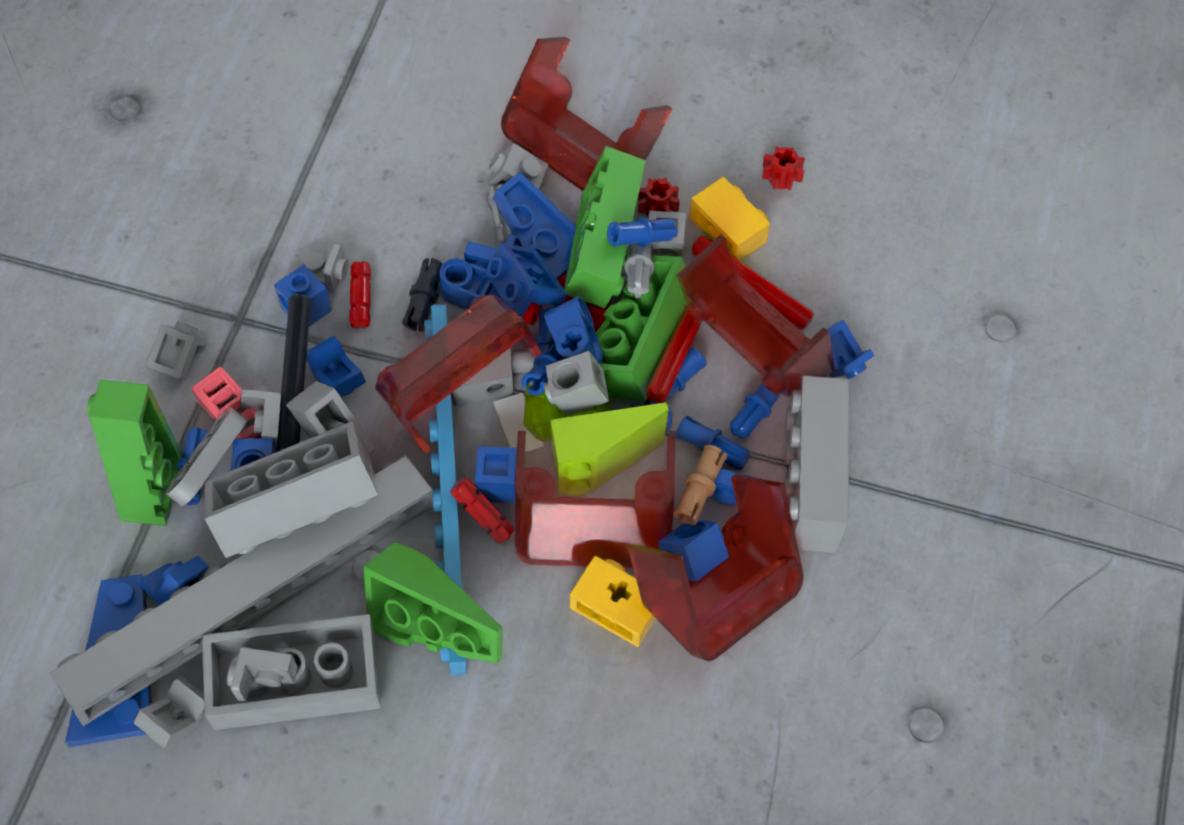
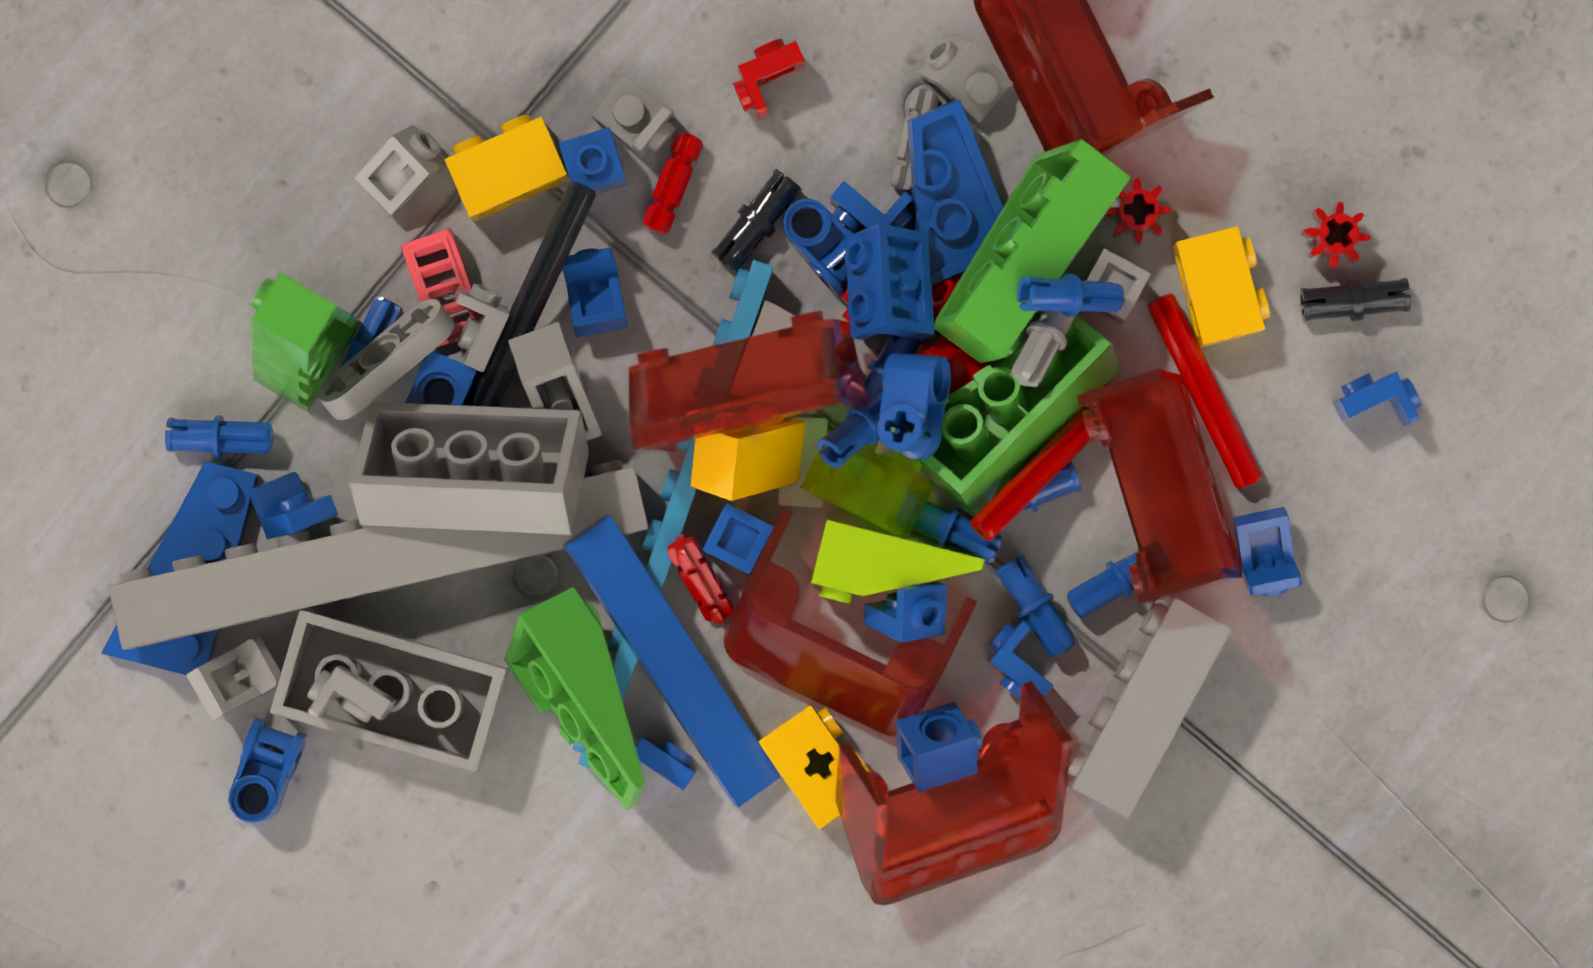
camera: 30 degrees right, 25 degrees up
(104, 561) = (218, 436): none -> blue axle
(218, 767) = (265, 768): none -> blue piece
(246, 323) = (506, 167): none -> yellow brick
(392, 208) = (771, 63): none -> red bracket
(478, 412) = (749, 459): none -> yellow brick
(486, 566) = (671, 660): none -> blue tile
(516, 644) = (668, 761): none -> blue bracket
(589, 387) = (900, 493): light grey brick -> none
(639, 458) = (910, 613): none -> blue bracket
(700, 485) = (980, 674): medium nougat pin -> none
(813, 199) = (1355, 299): none -> black pin
(861, 235) = (1366, 393): none -> blue bracket

